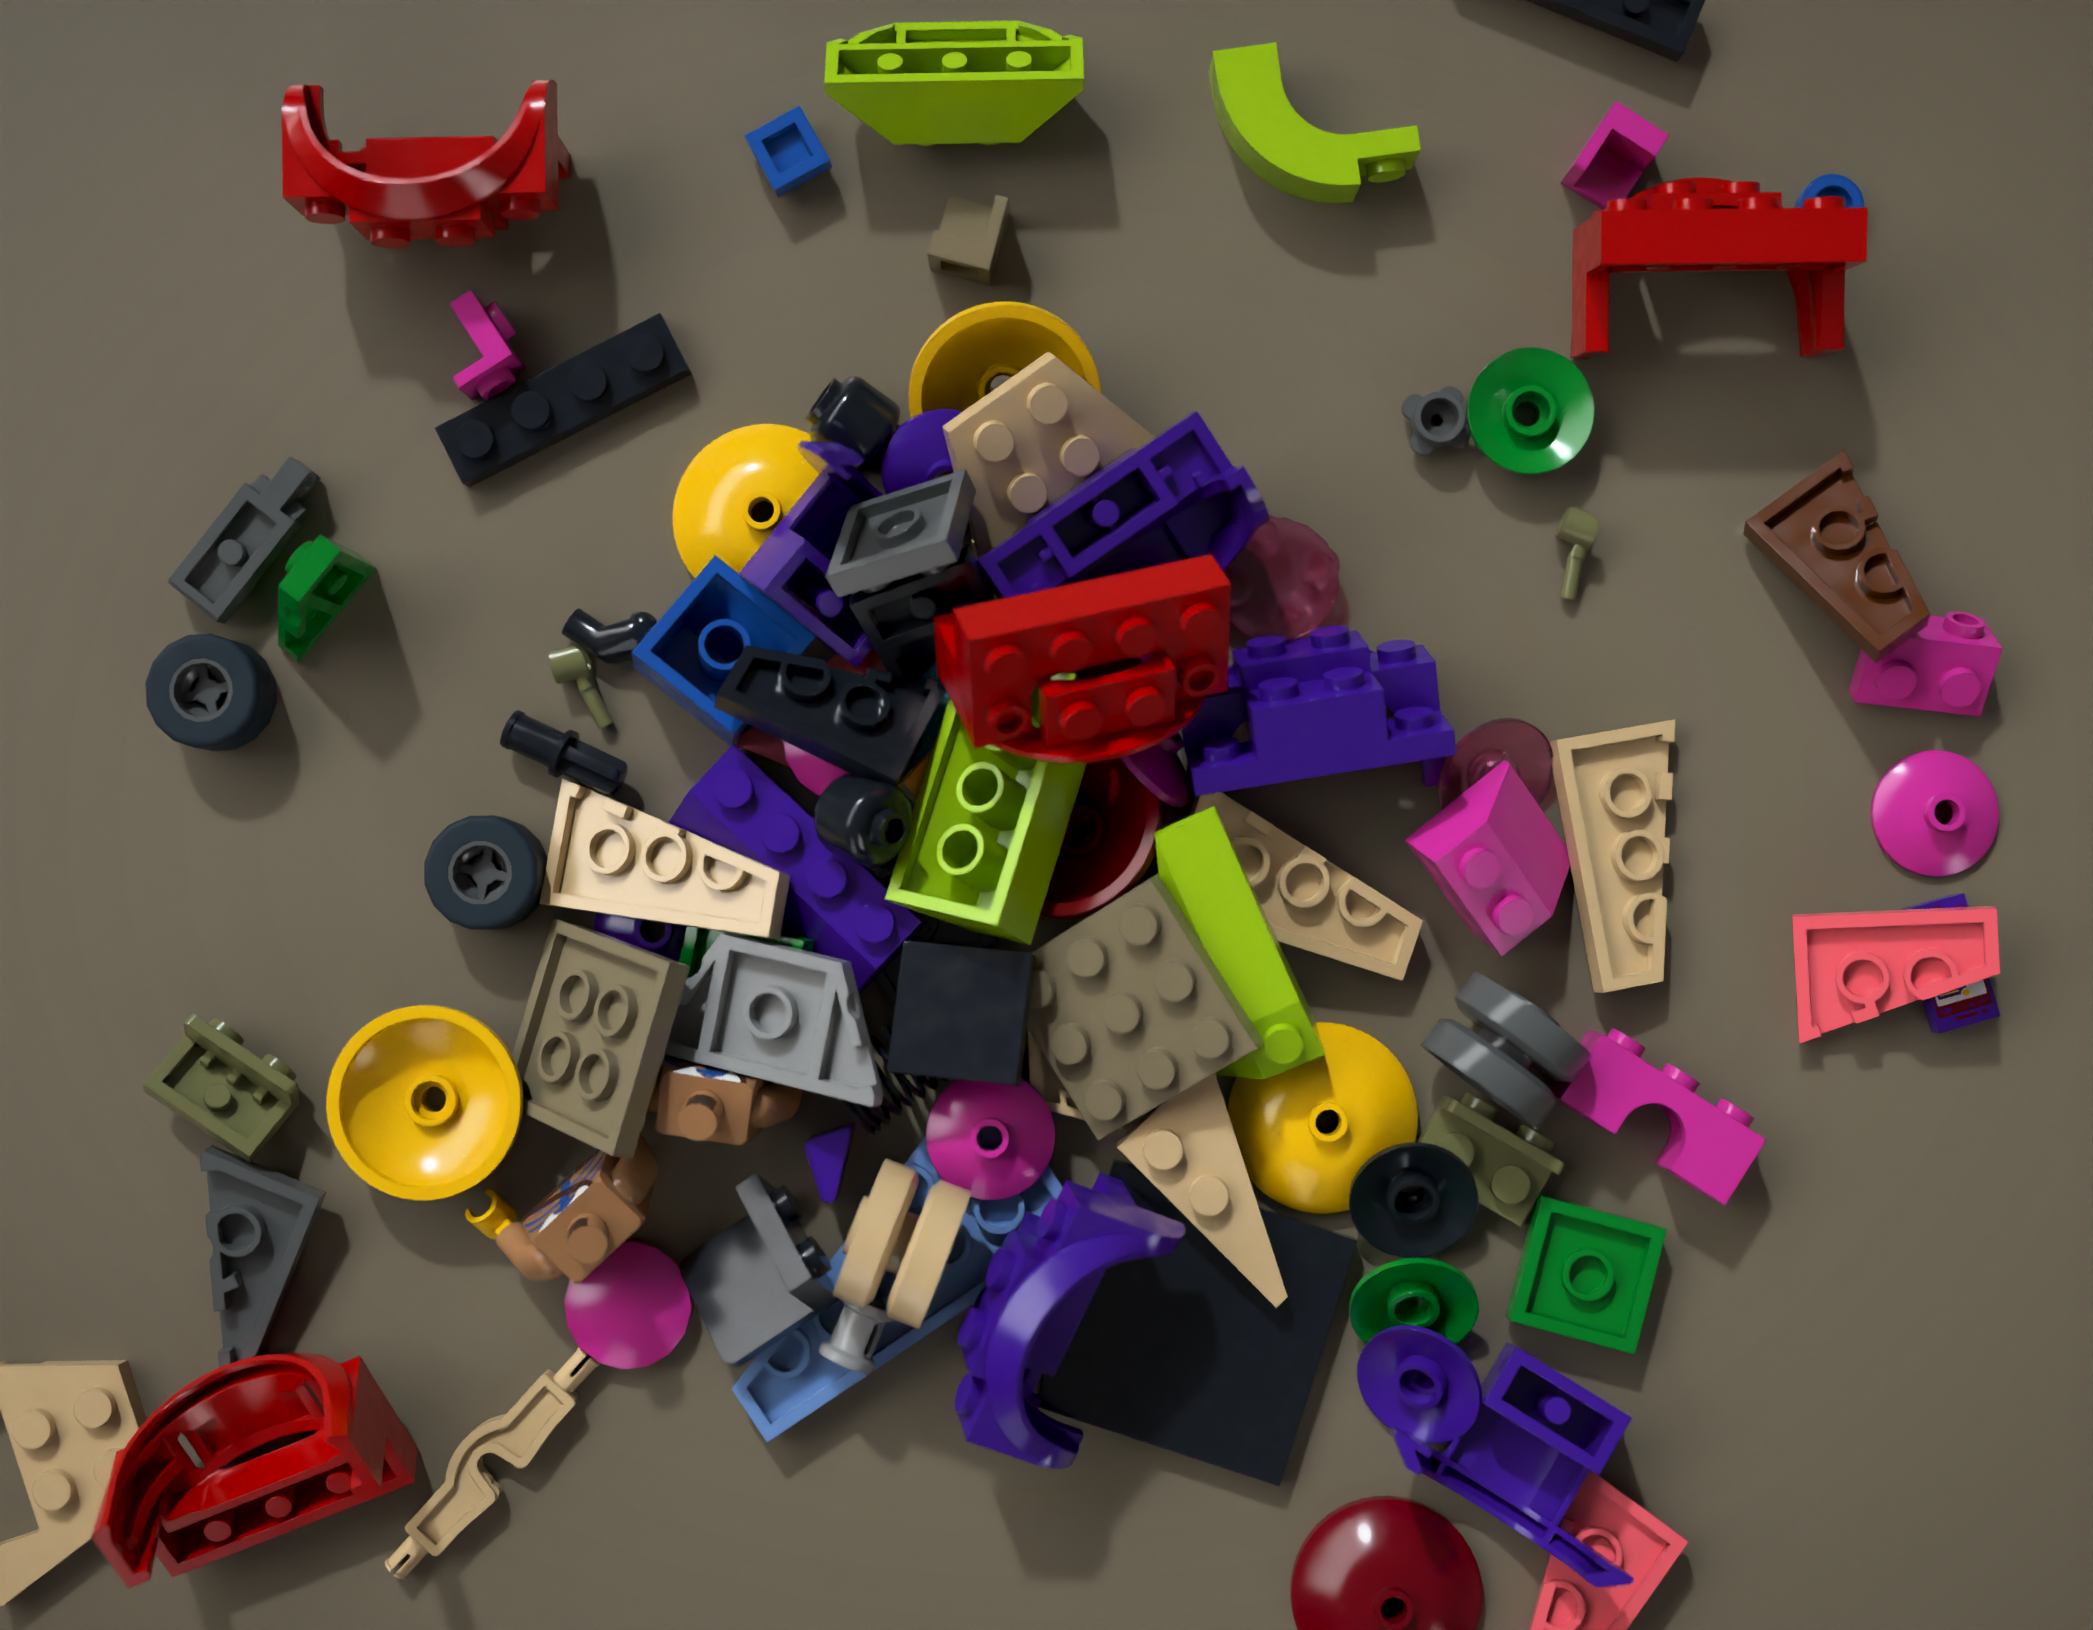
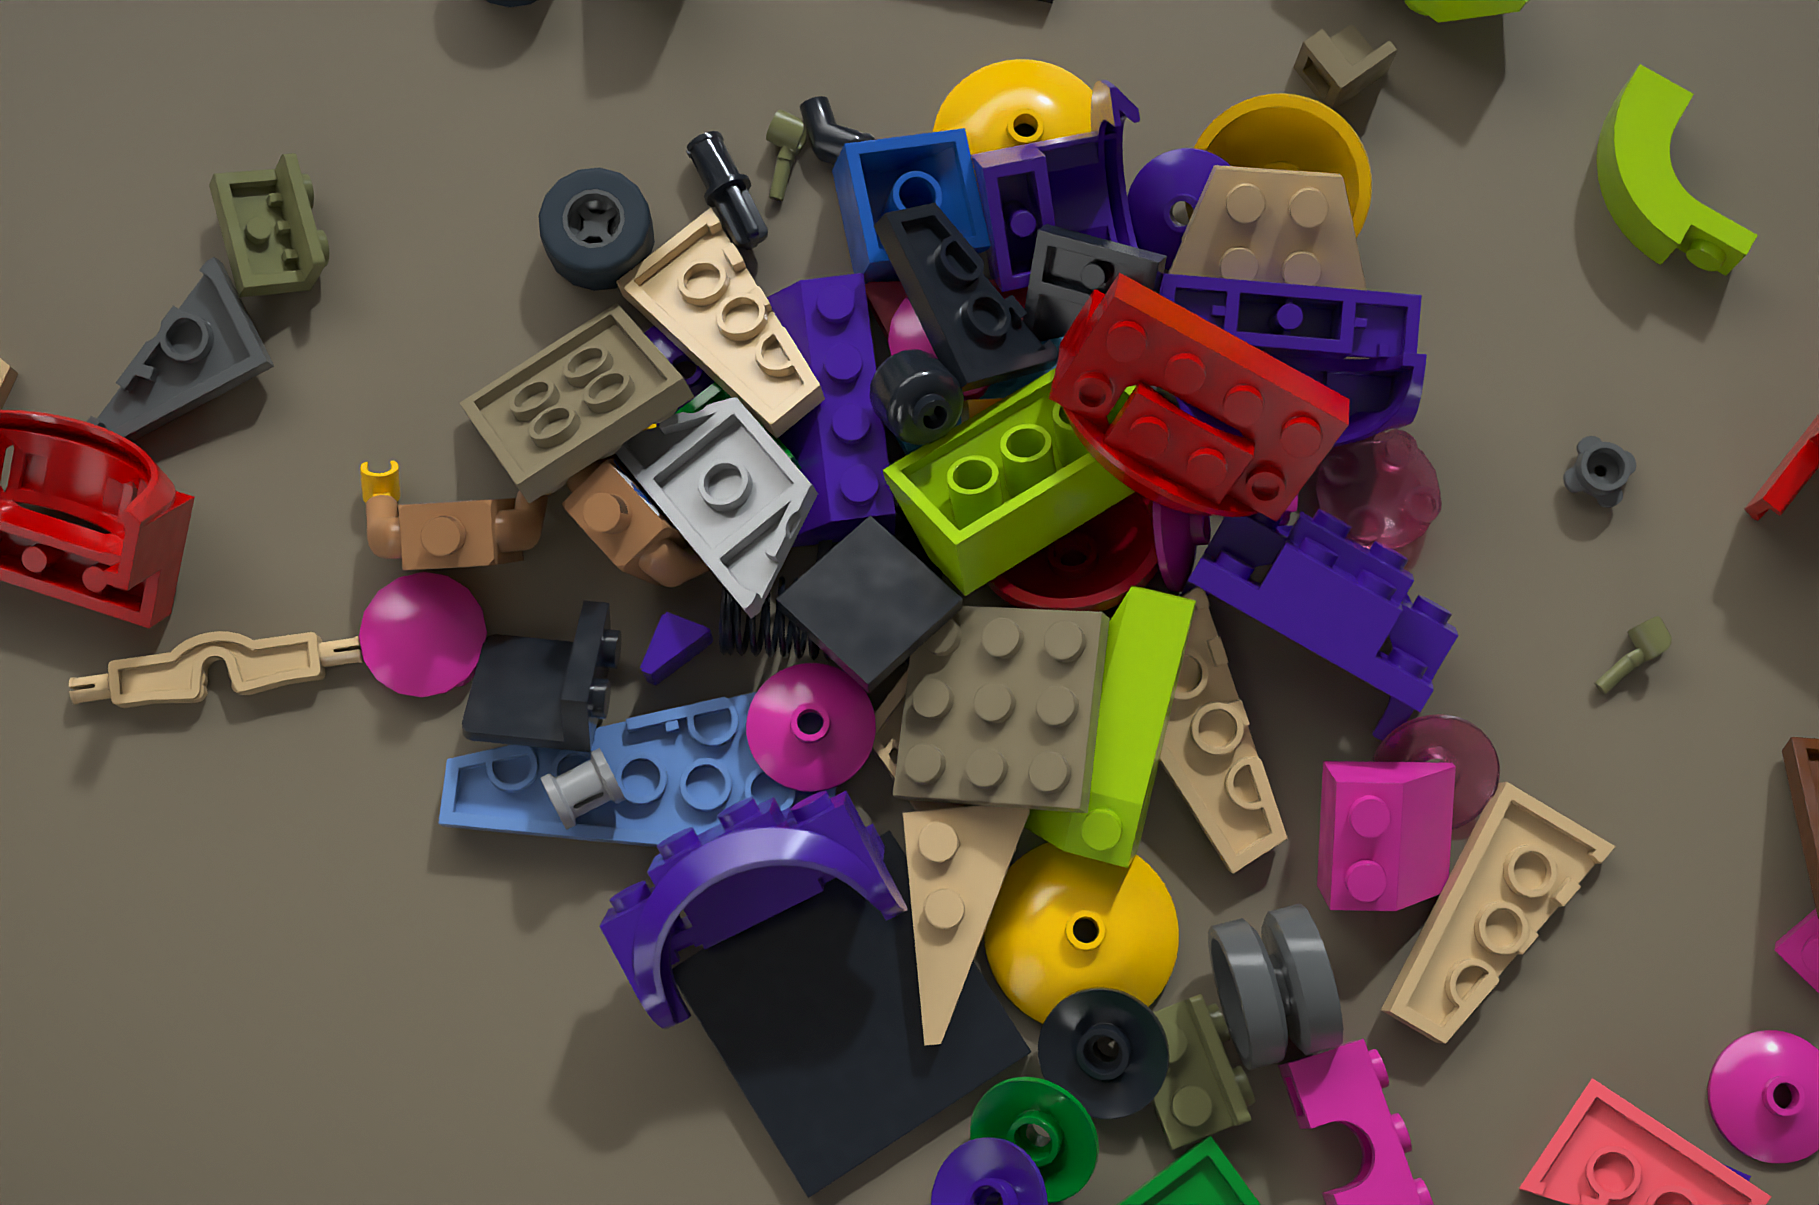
camera: 35 degrees right, 10 degrees down
(382, 1108) = (385, 321): yellow dish -> none
(854, 417) = (1160, 125): black head -> none
(900, 1242) = (676, 738): tan wheel -> none
(902, 534) = (1120, 211): dark grey plate -> none
(1554, 392) = (1701, 499): green dish -> none

